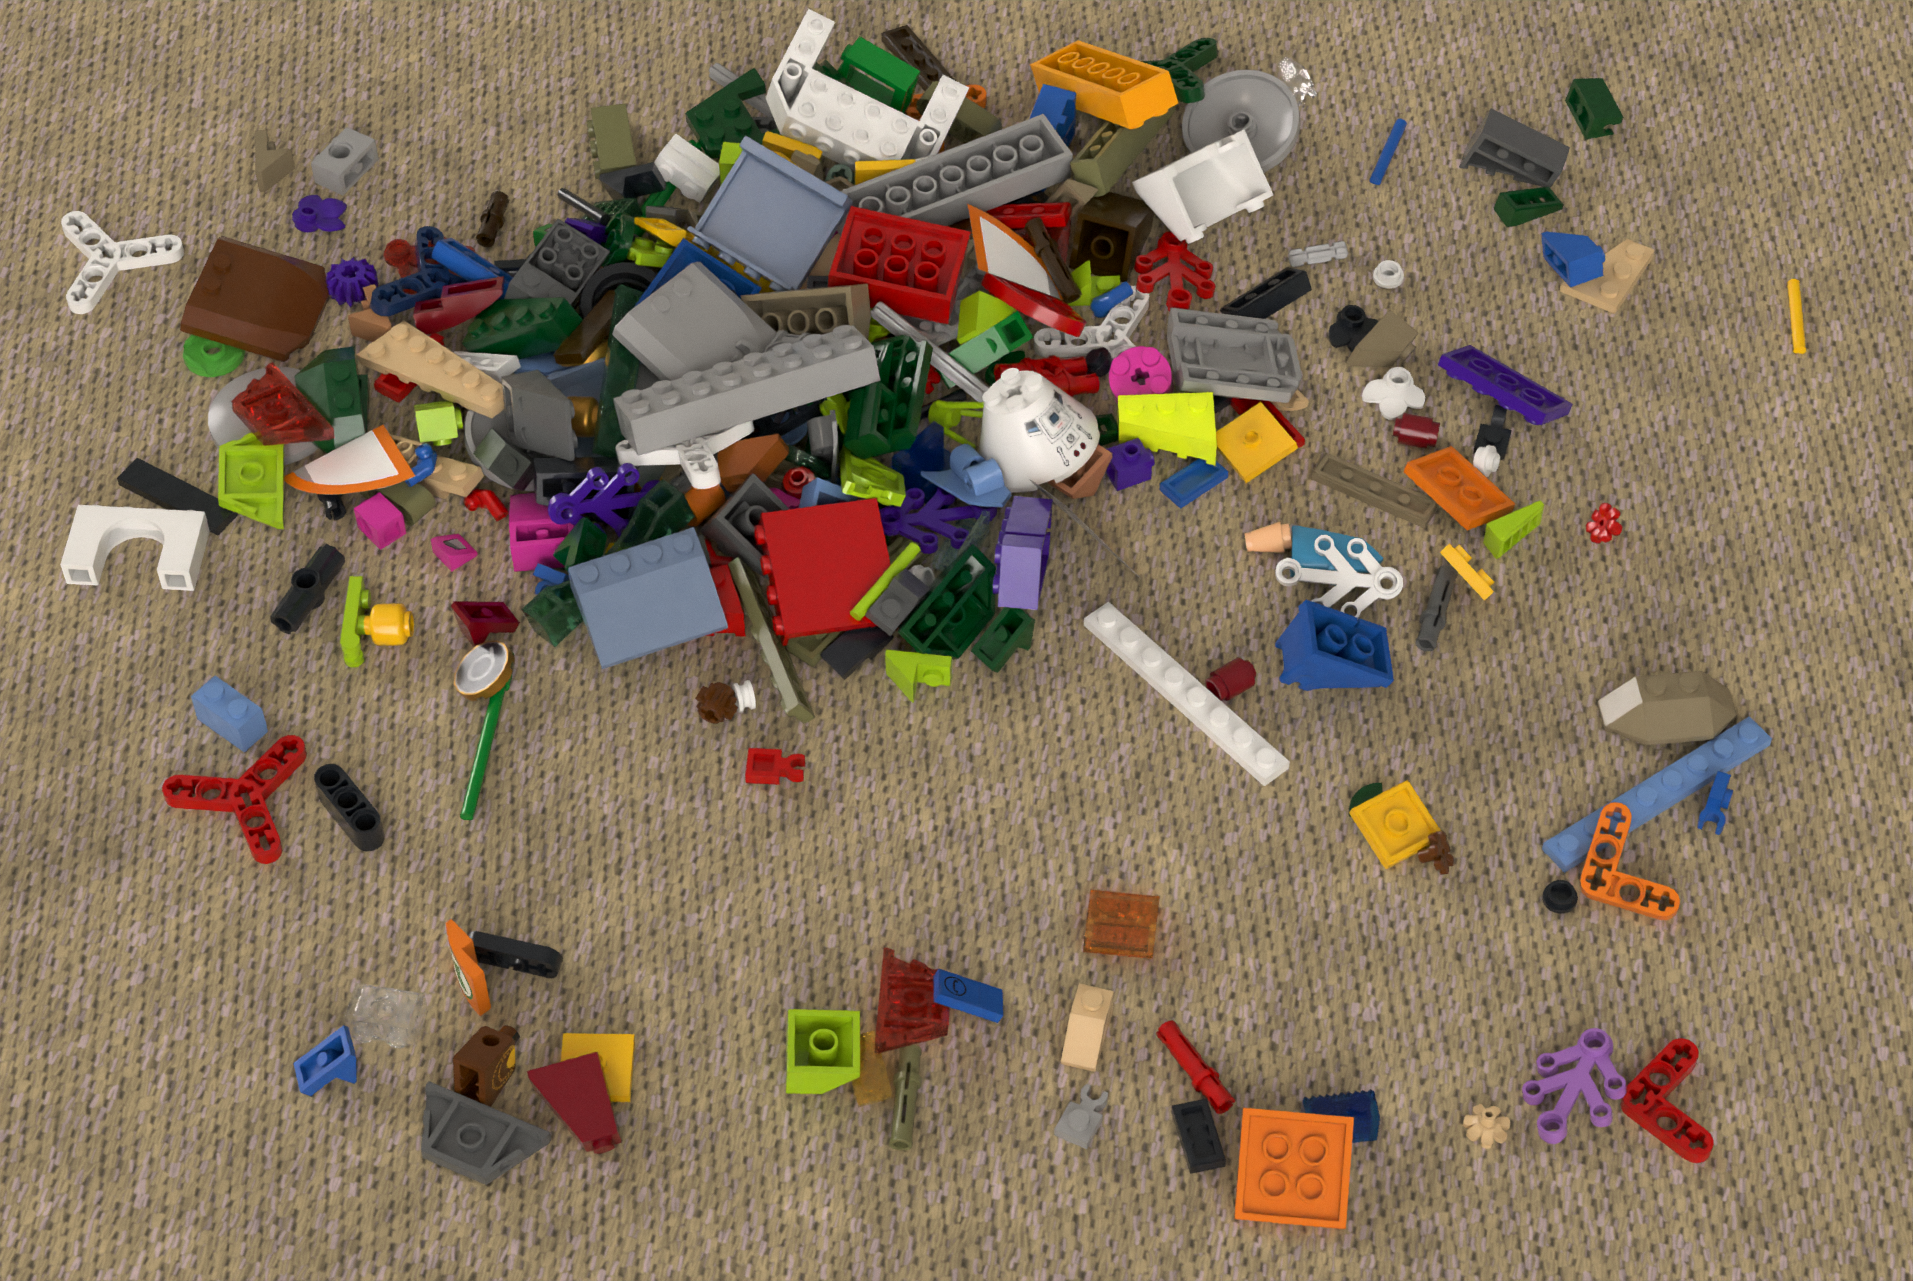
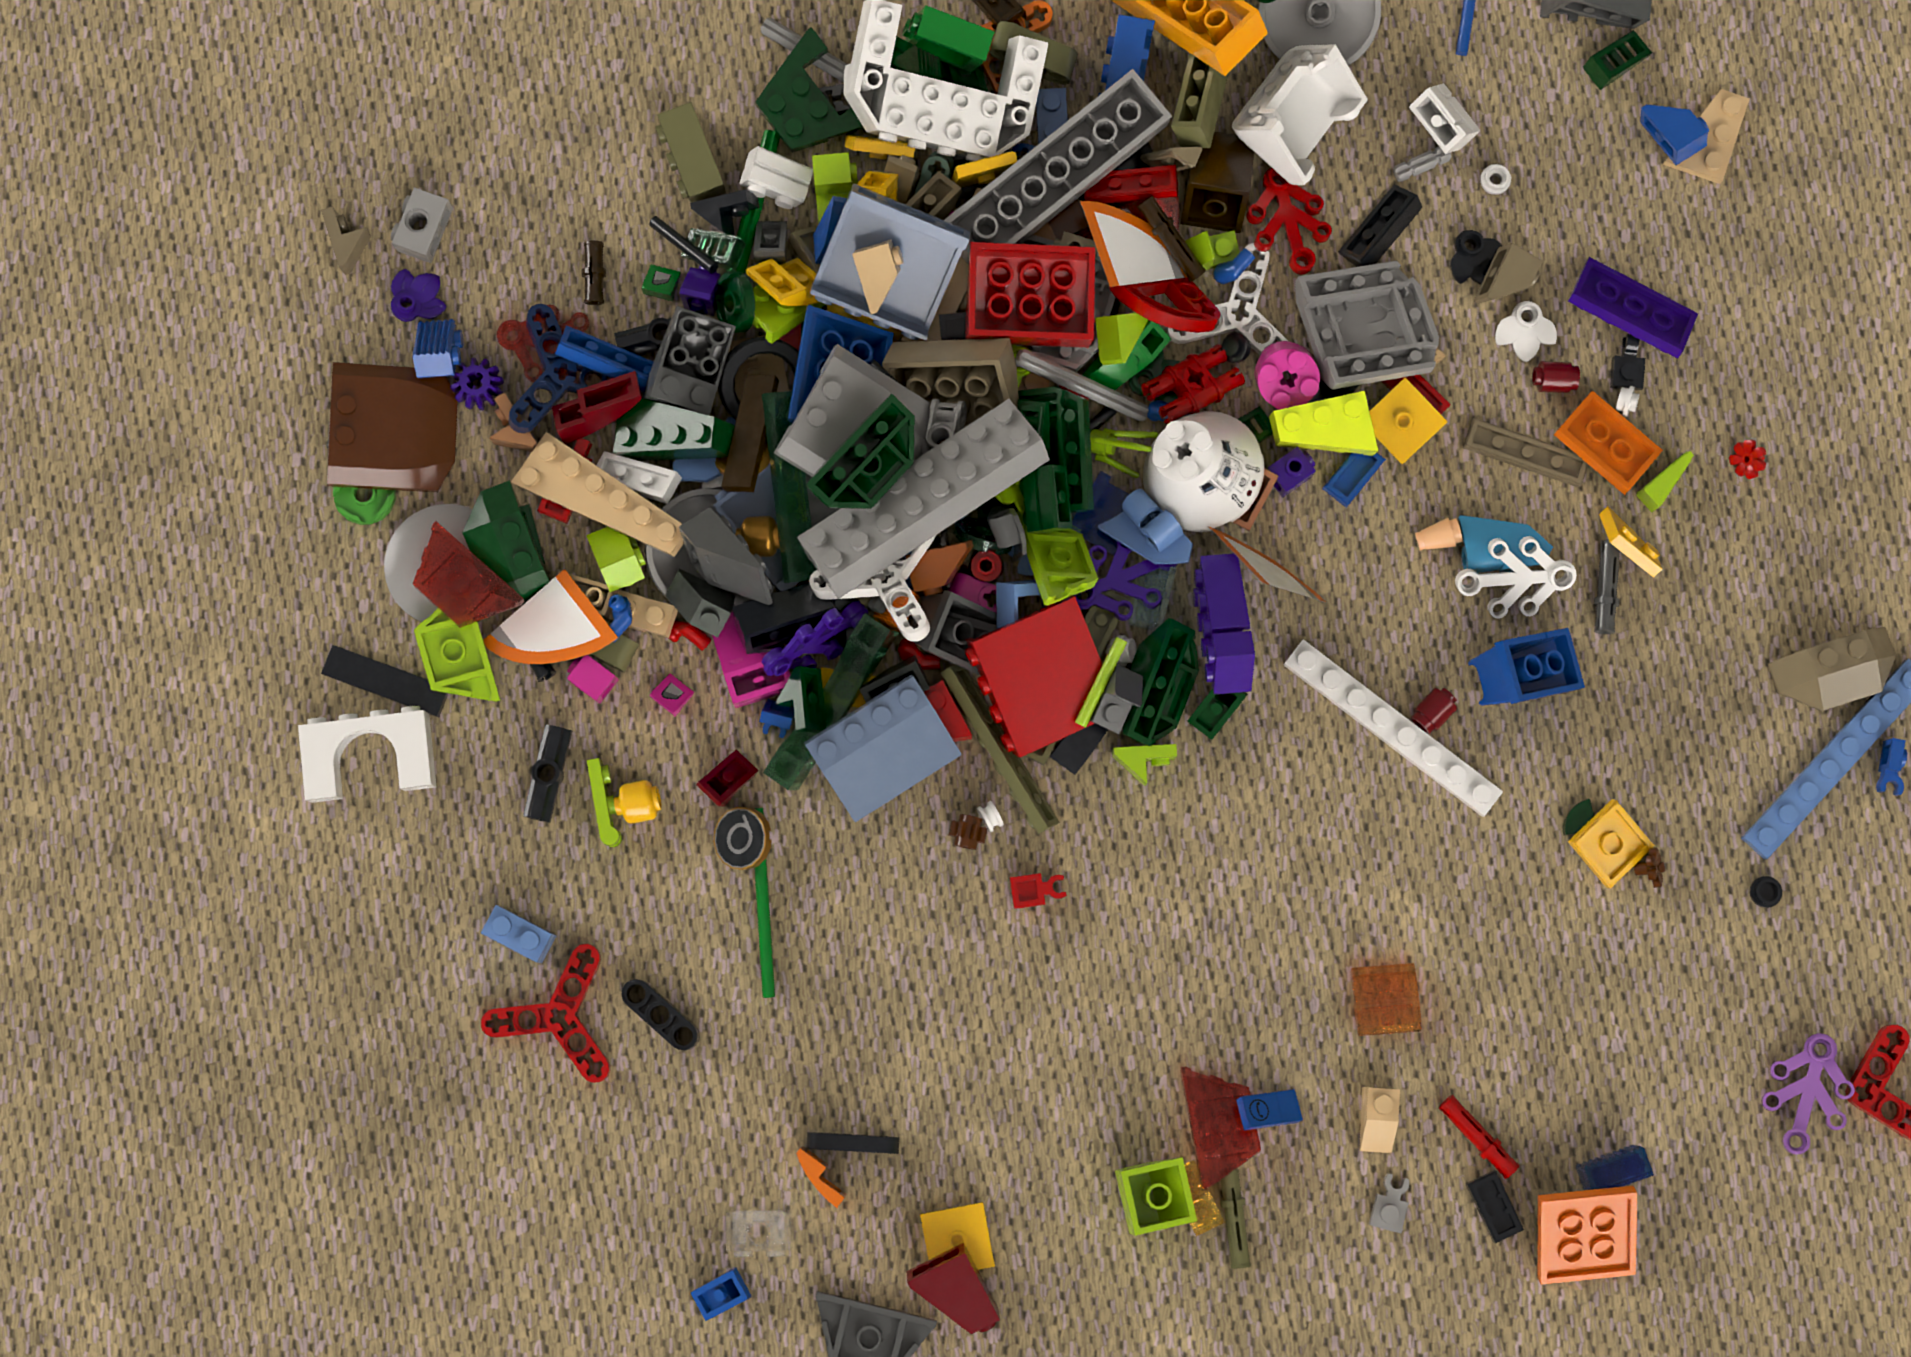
camera: 15 degrees left, 30 degrees up
(120, 256) = (221, 407): white piece -> none
(323, 244) = (437, 349): none -> blue brick
(485, 1064) = (863, 1280): reddish brown torso -> none
(699, 335) = (868, 459): none -> dark green wedge
(756, 219) = (877, 270): none -> tan slope
(1345, 217) = (1444, 118): none -> white brick
(1486, 1125) = (1736, 1142): tan plant -> none
(1616, 880) = (1813, 868): orange beam -> none
(1796, 316) = (1894, 156): yellow bar -> none

